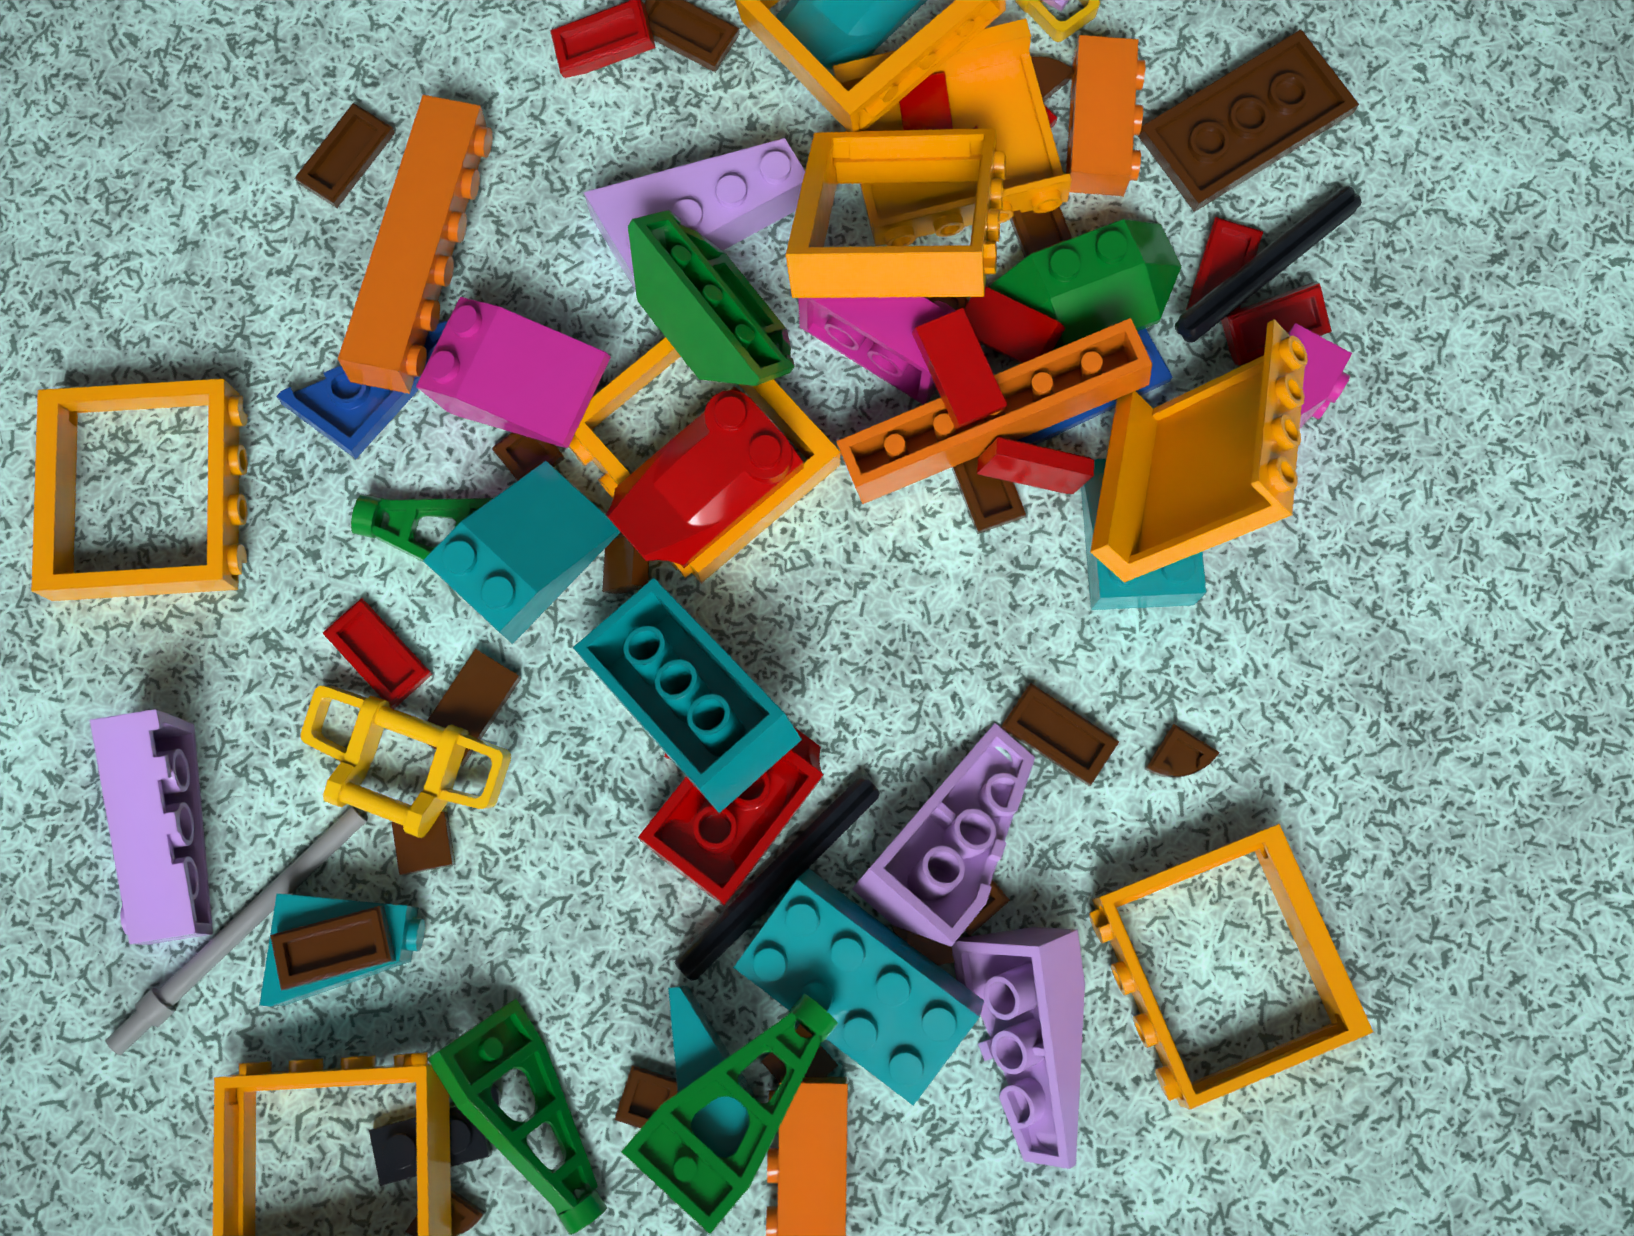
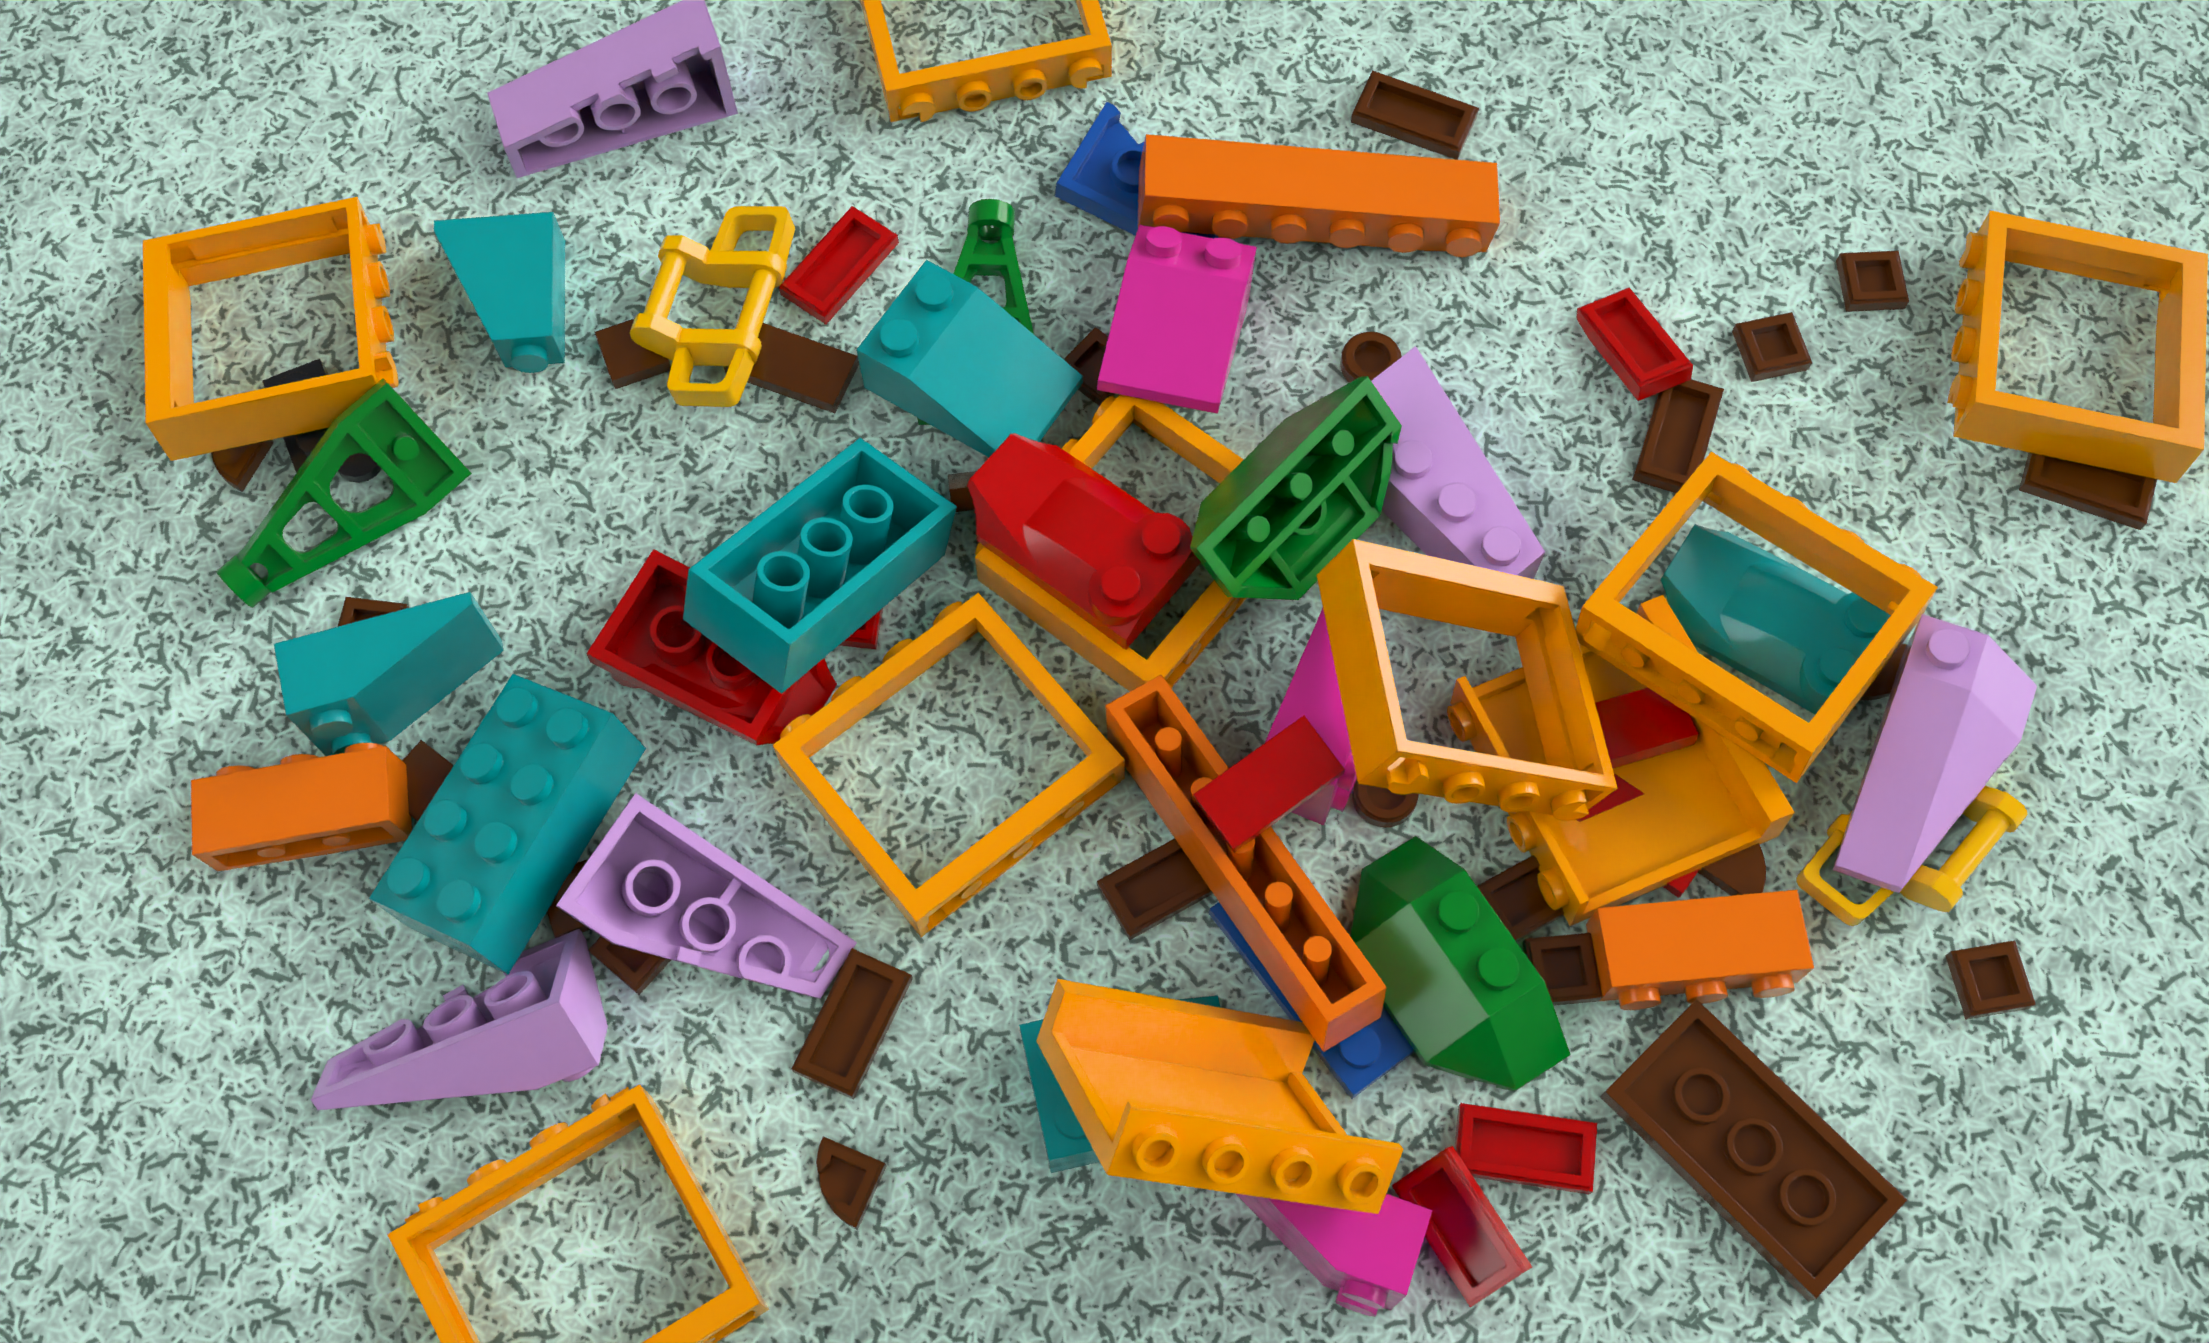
camera: 80 degrees right, 10 degrees down
(159, 1004) = (440, 143): light grey bar -> none
(332, 948) = (497, 272): reddish brown tile -> none
(570, 239) = (1368, 355): none -> reddish brown tile
(686, 1167) = (270, 632): green plate -> none
(776, 878) = (658, 736): black axle -> none
(938, 587) = (1008, 841): none -> light orange window
(1012, 327) = (1367, 865): red tile -> none
(1035, 466) = (1188, 928): red tile -> none
(1096, 209) = (1566, 967): none -> reddish brown tile
(1267, 264) = (1544, 1201): black axle -> none

